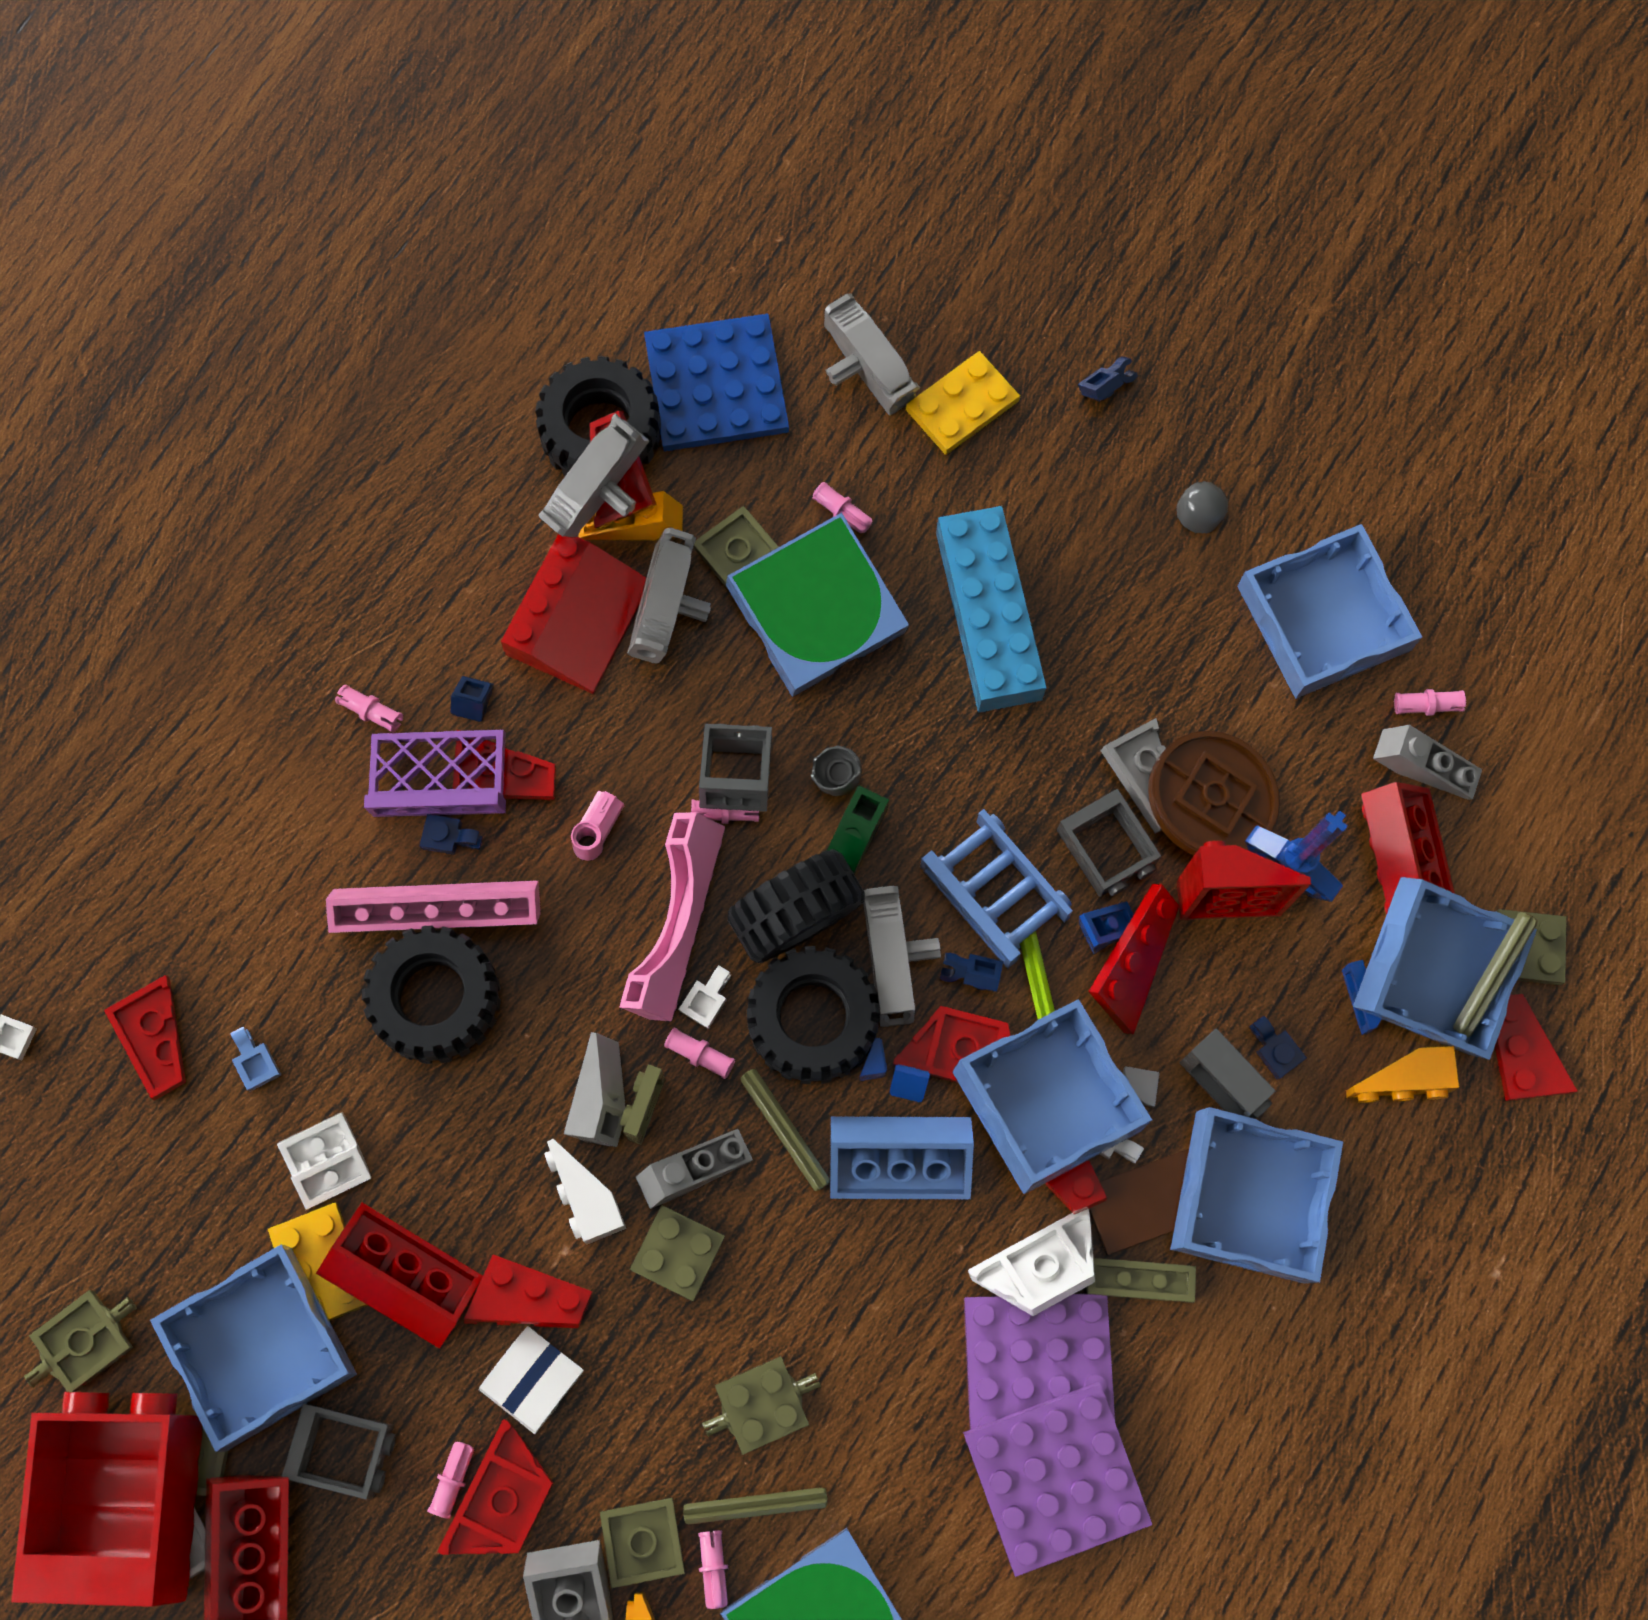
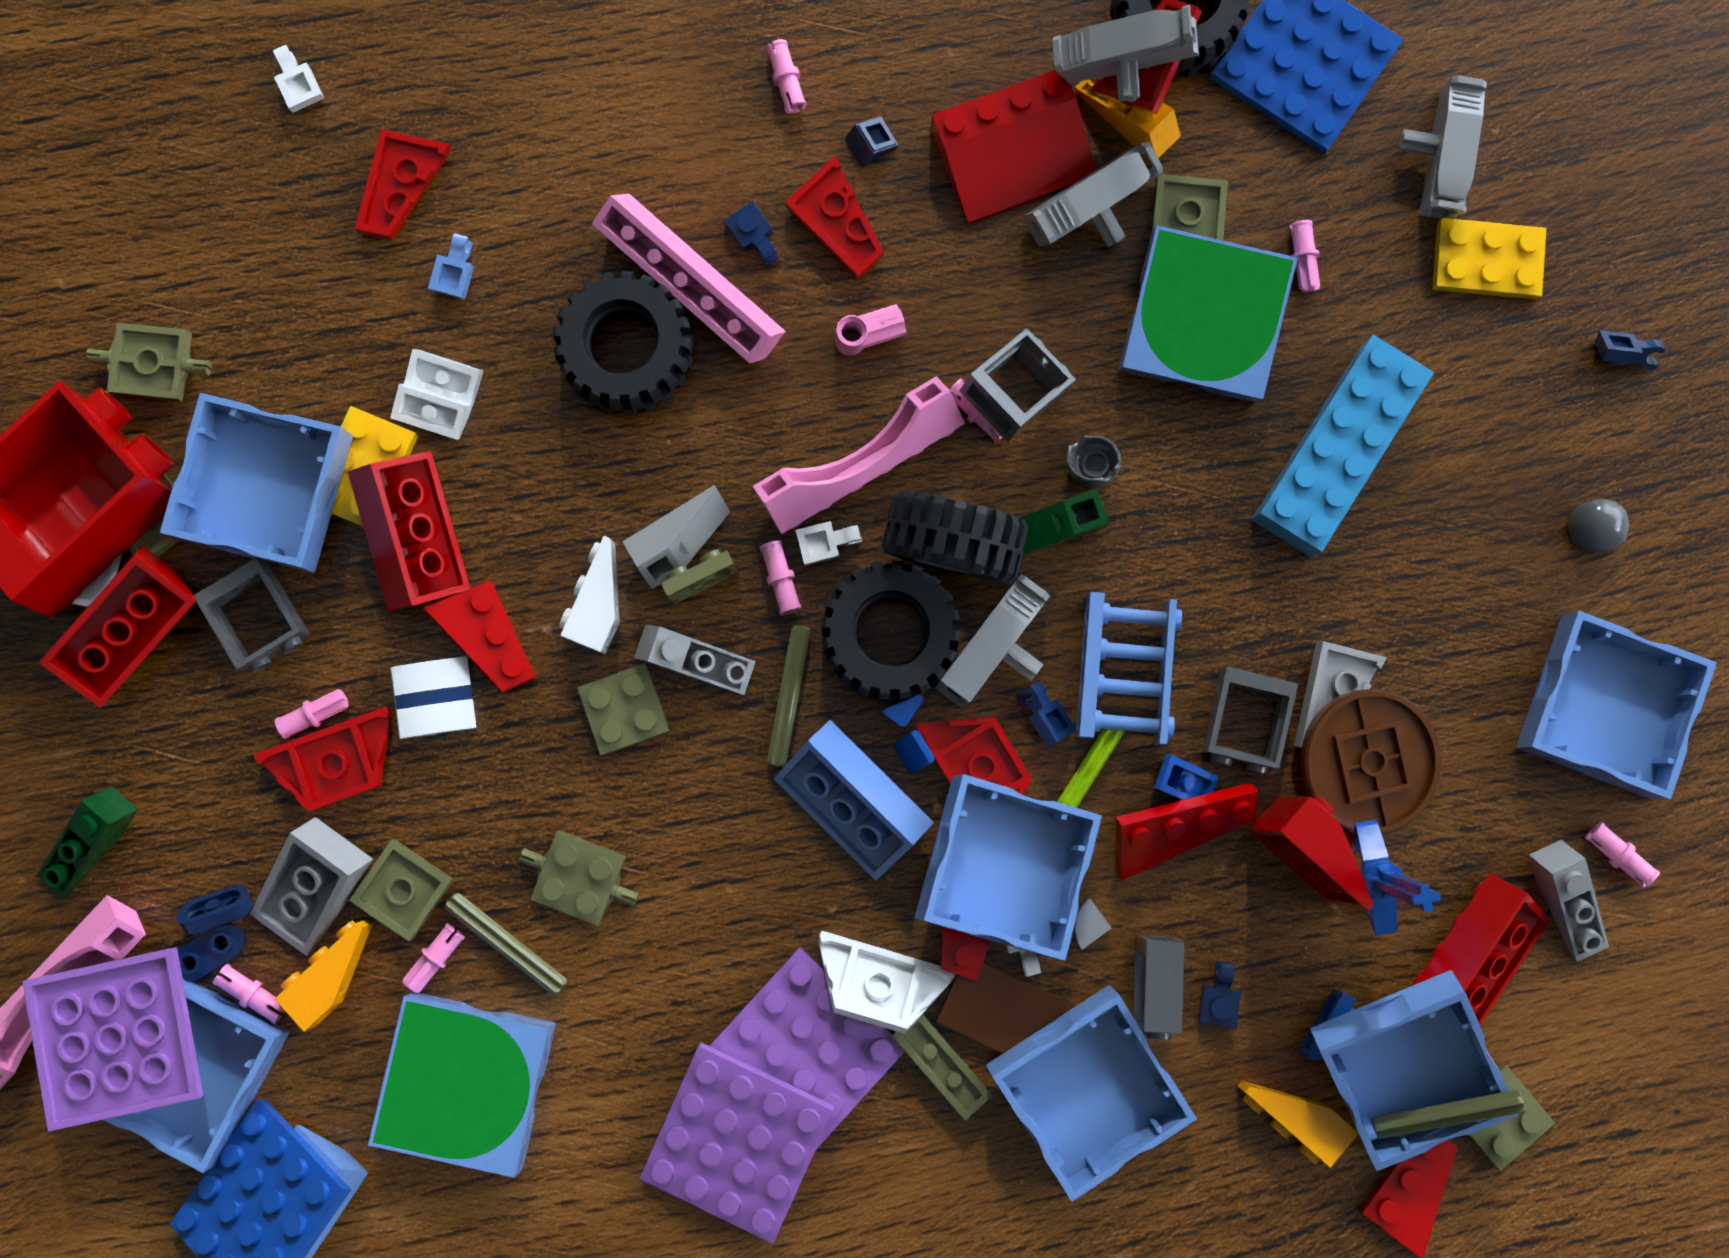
camera: 45 degrees right, 10 degrees up
(439, 801) = (761, 189): medium lavender fence -> none

